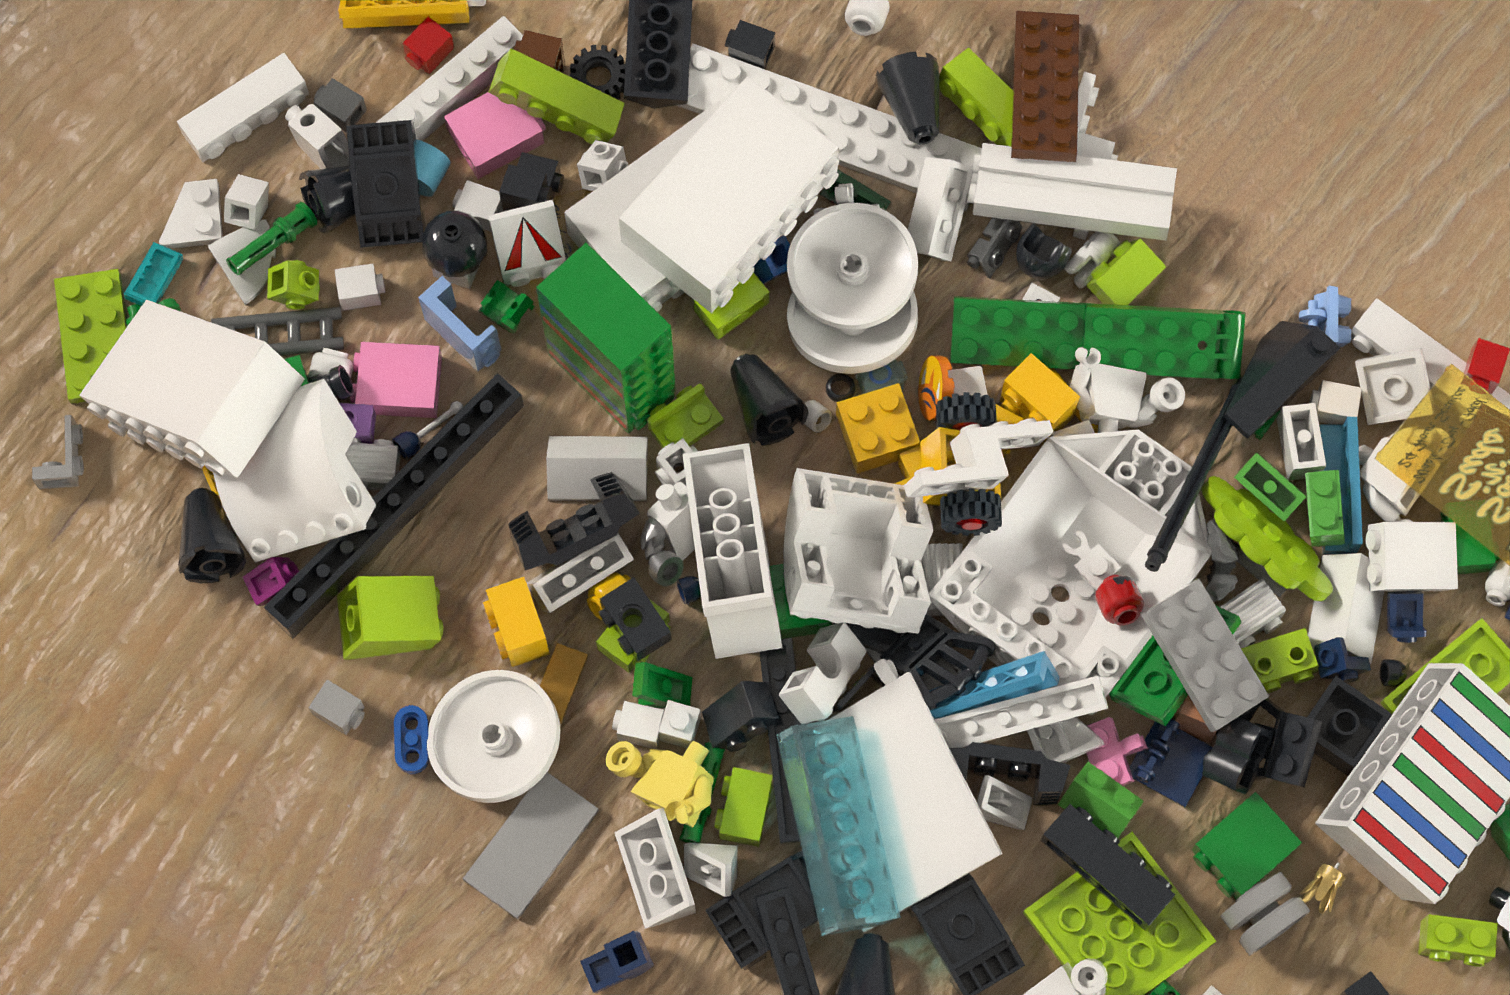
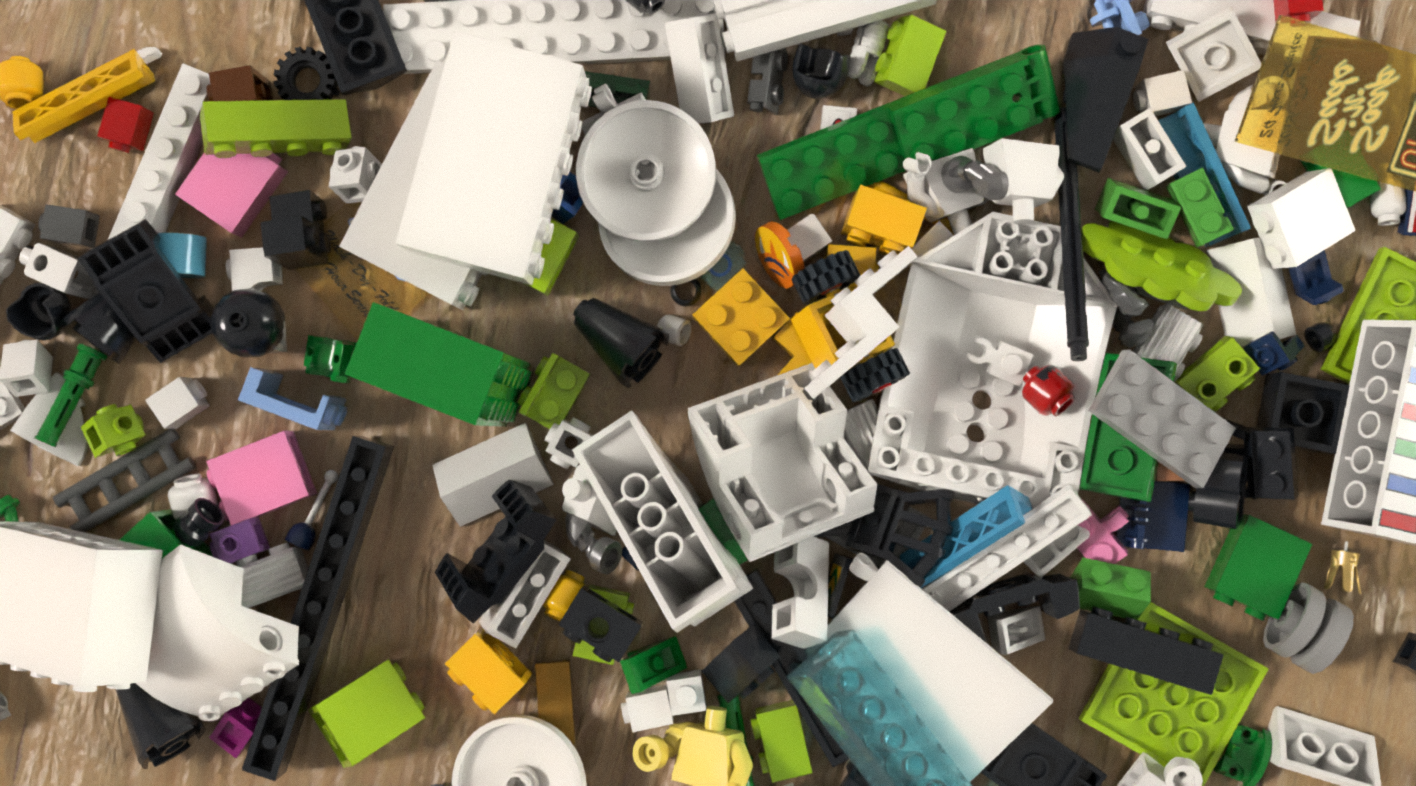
camera: 25 degrees left, 15 degrees up
(282, 161) = (39, 312): none -> black hair
(527, 242) = (319, 292): white slope -> none
(1168, 404) = (1013, 175): none -> white torso

